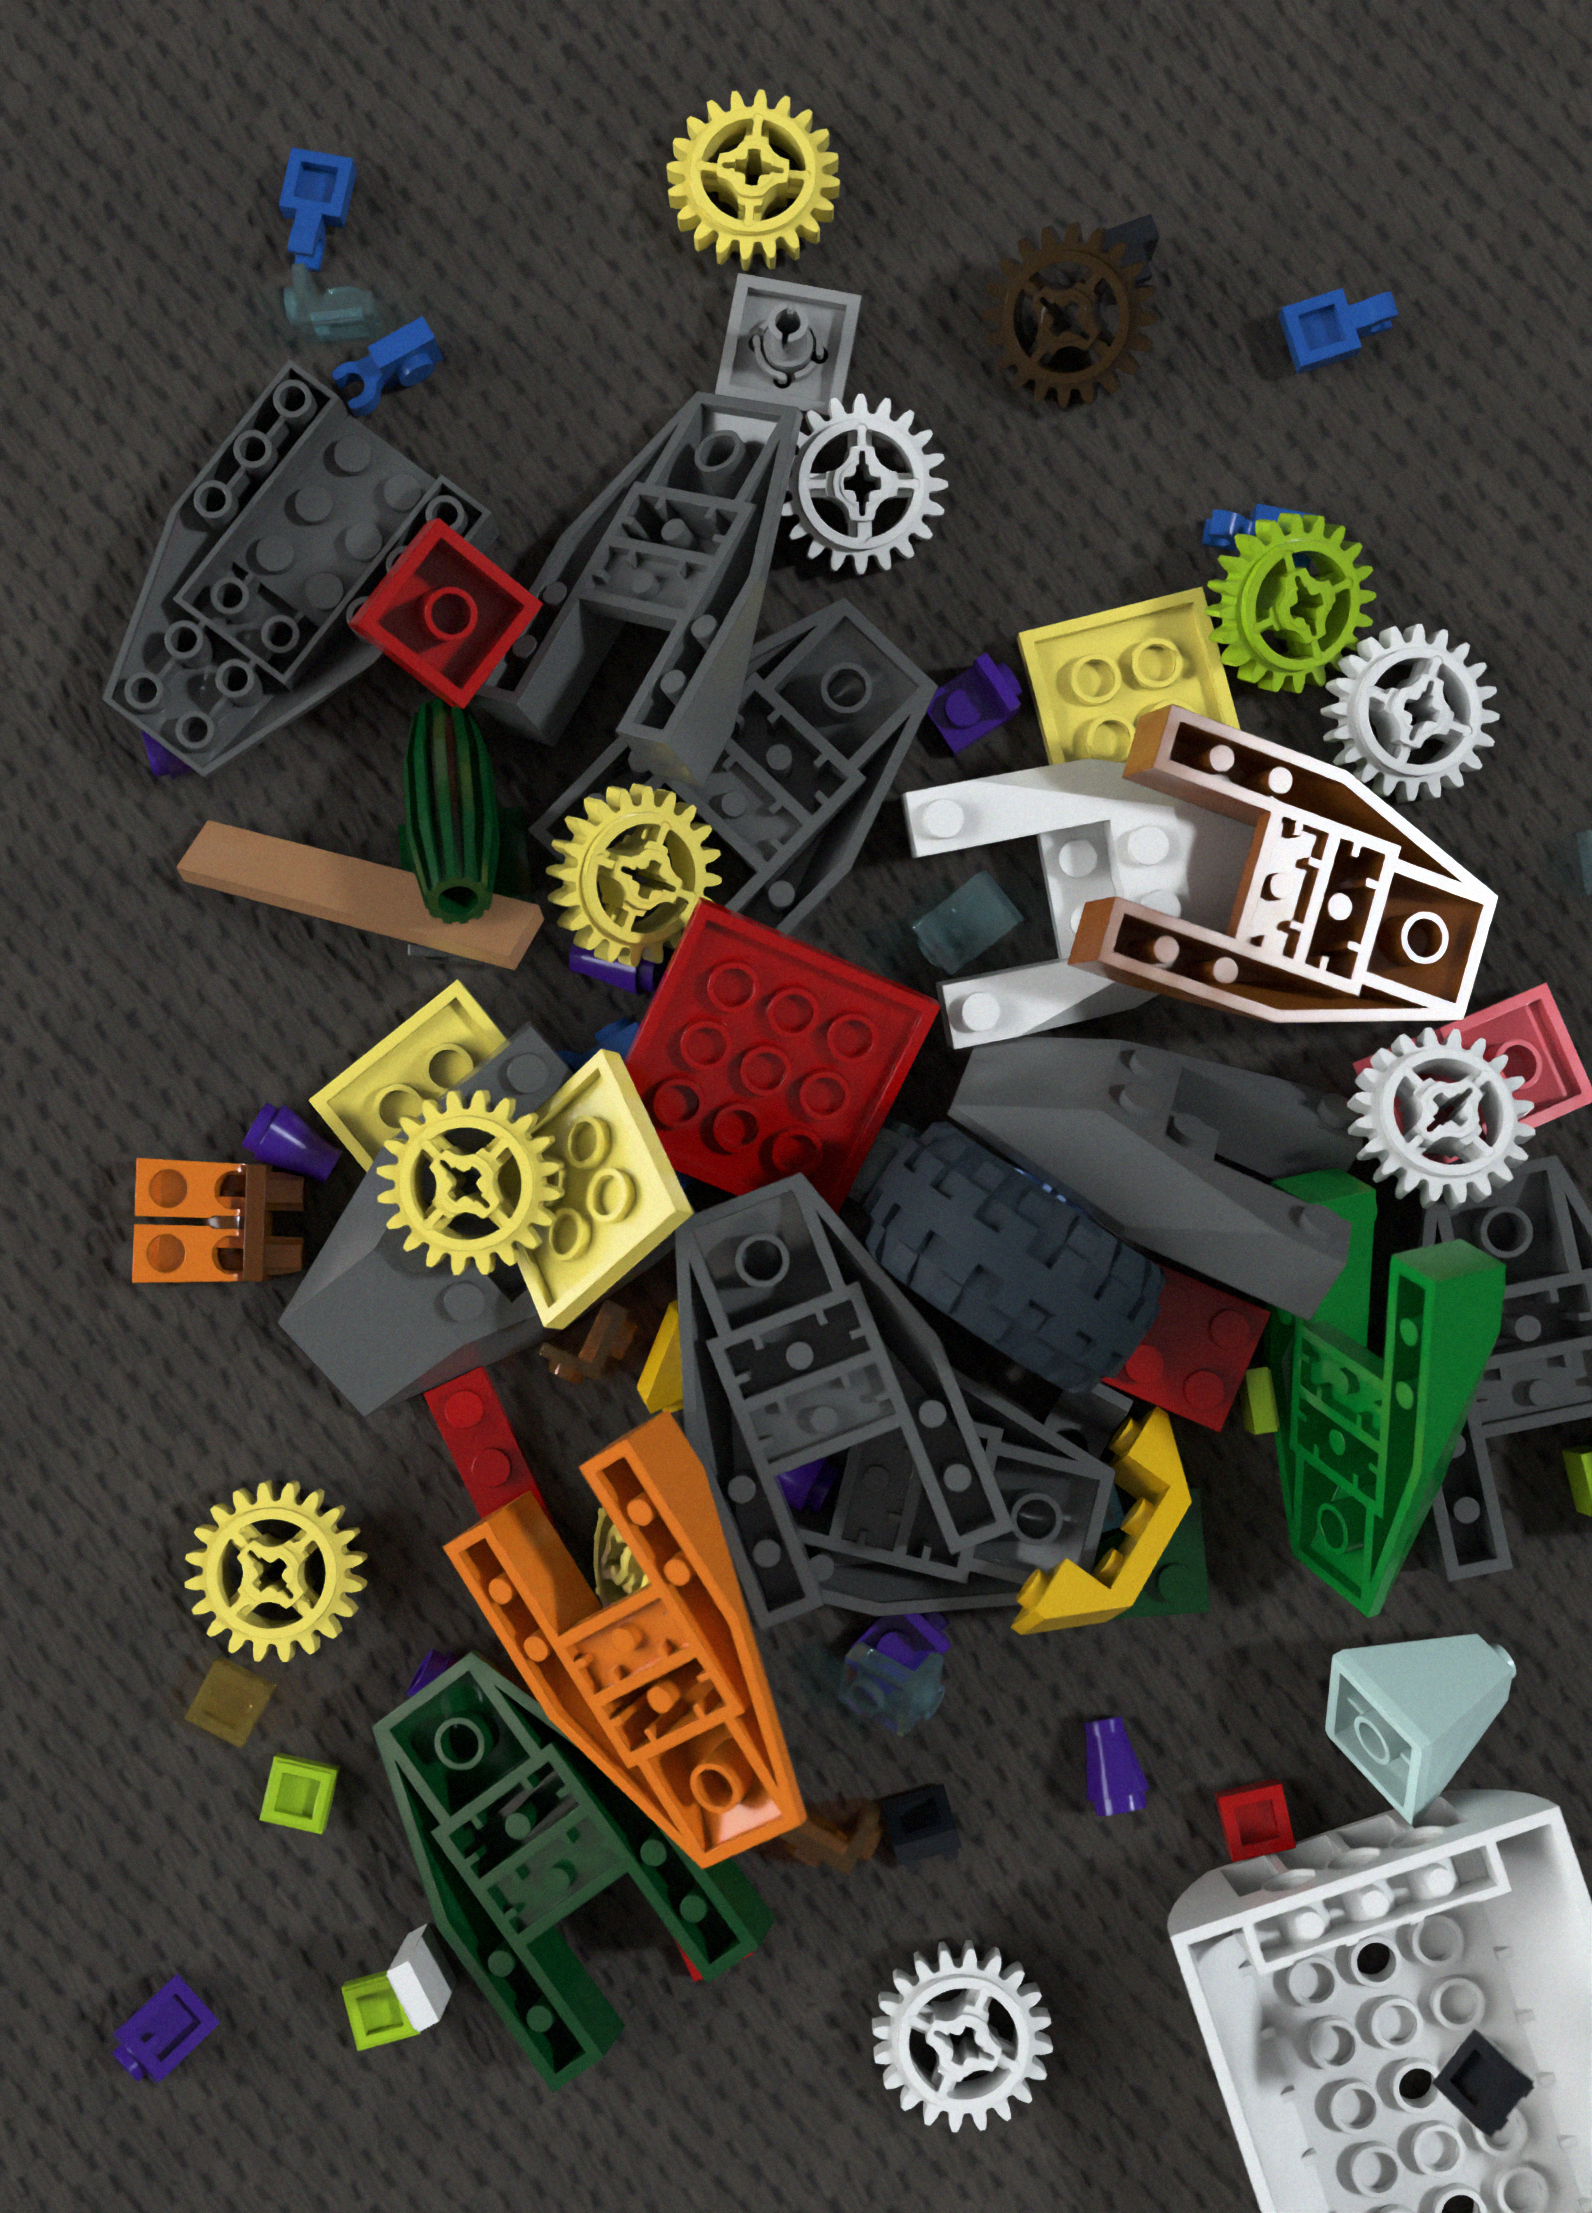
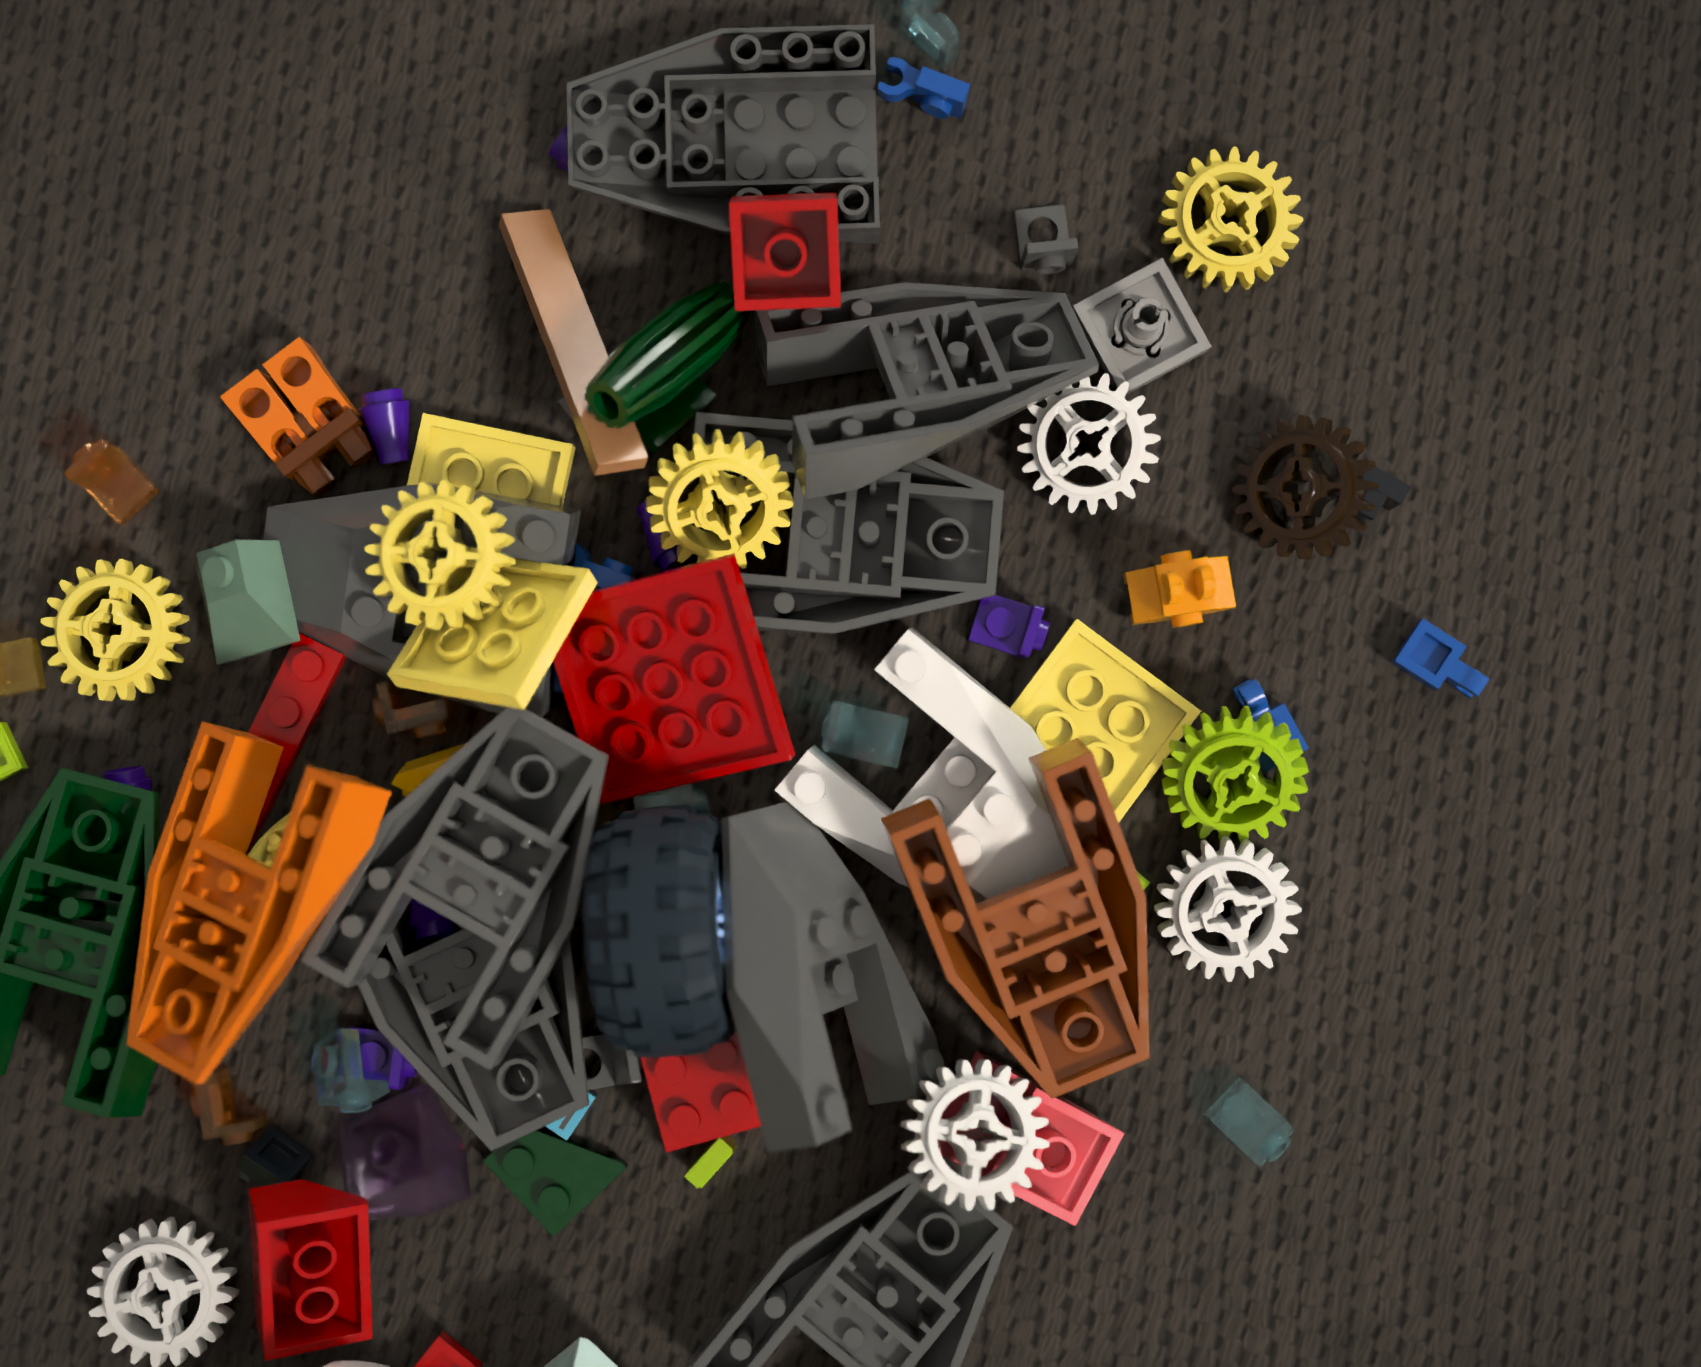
camera: 55 degrees right, 0 degrees up
(125, 1456) = (111, 479): none -> clear orange bracket
(351, 1417) = (246, 598): none -> sand green slope
(645, 382) = (1045, 256): none -> dark grey bracket
(1018, 1698) = (404, 1156): none -> clear purple slope
(1055, 1869) = (309, 1267): none -> red slope
(1071, 511) = (1180, 589): none -> light orange hinge
(1112, 1769) = (404, 1255): dark purple cone -> none
(1153, 1474) = (610, 1127): yellow slope -> none
(1366, 1434) = (738, 1250): green wedge -> none

